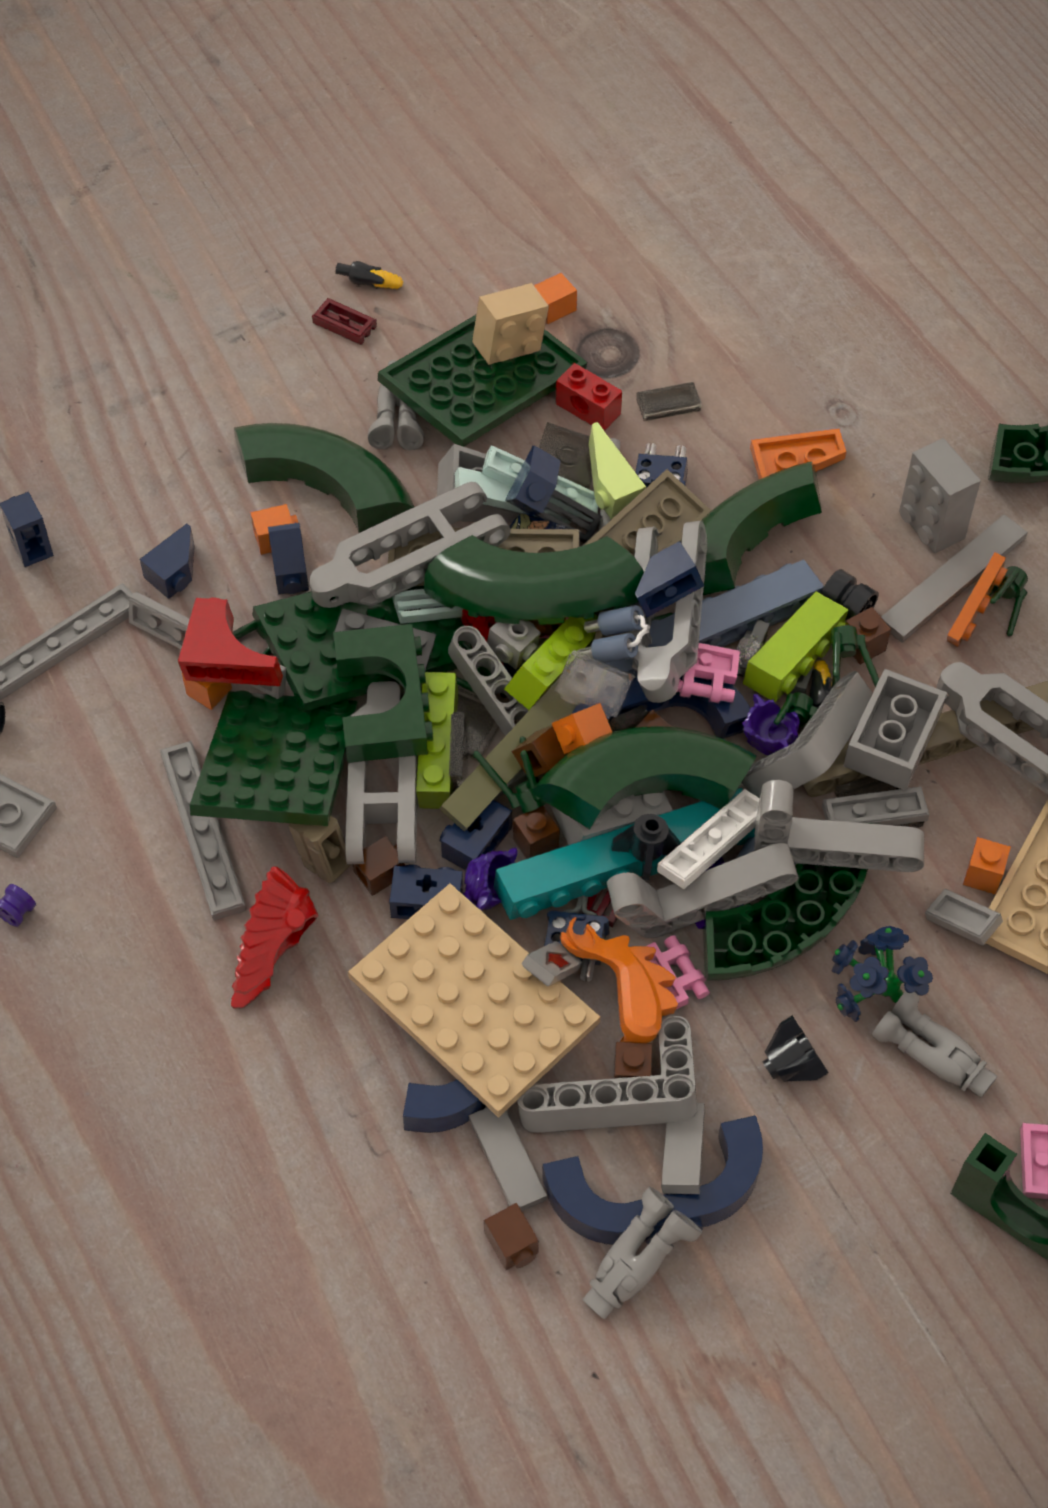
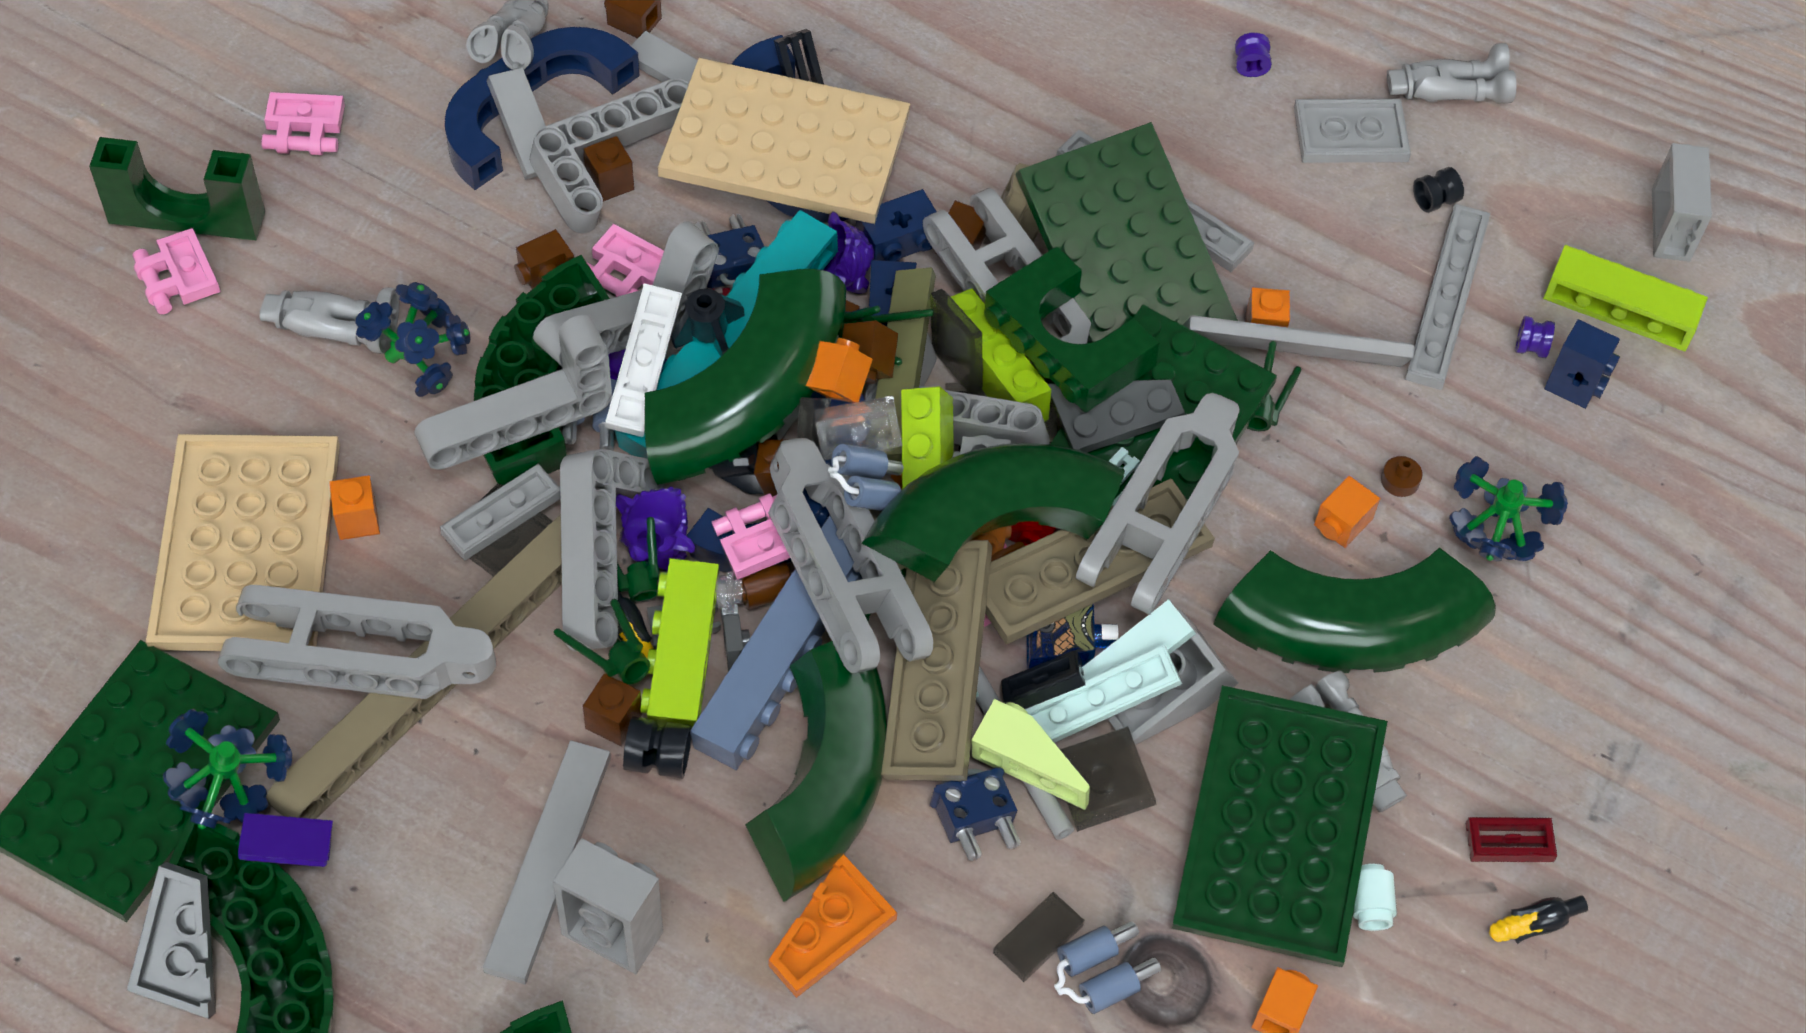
camera: 145 degrees right, 0 degrees up
(30, 577) = (1535, 337): none -> dark purple wheel
(171, 562) = (1412, 420): dark blue slope -> none
(176, 462) = (1507, 502): none -> dark blue plant
(211, 542) = (1401, 476): none -> reddish brown tile
(214, 653) = (1264, 295): red arch -> none
(275, 925) = (1004, 110): red piece -> none
(288, 558) = (1295, 472): dark blue slope -> none
(408, 1071) = (810, 54): none -> black tile
(455, 316) = (1375, 898): none -> light aqua brick
(510, 323) = (1289, 857): tan brick -> none
(534, 482) = (1094, 656): dark blue slope -> none
(551, 963) = (730, 186): light grey tile -> none
(588, 396) = (1133, 868): red brick -> none
(640, 983) = (641, 222): orange animal -> none
(646, 365) = (1110, 985): none -> sand blue piece
(667, 579) = (846, 545): dark blue slope -> none
(734, 1008) = (541, 257): none -> reddish brown brick
(792, 1055) = (465, 241): black brick -> none
(875, 1278) = (306, 114): none -> bright pink plate
(895, 729) = (514, 563): light grey brick -> none
(964, 917) = (356, 445): light grey tile -> none
(978, 600) = (498, 811): orange wing -> none
(1011, 587) = (473, 877): dark green plant -> none

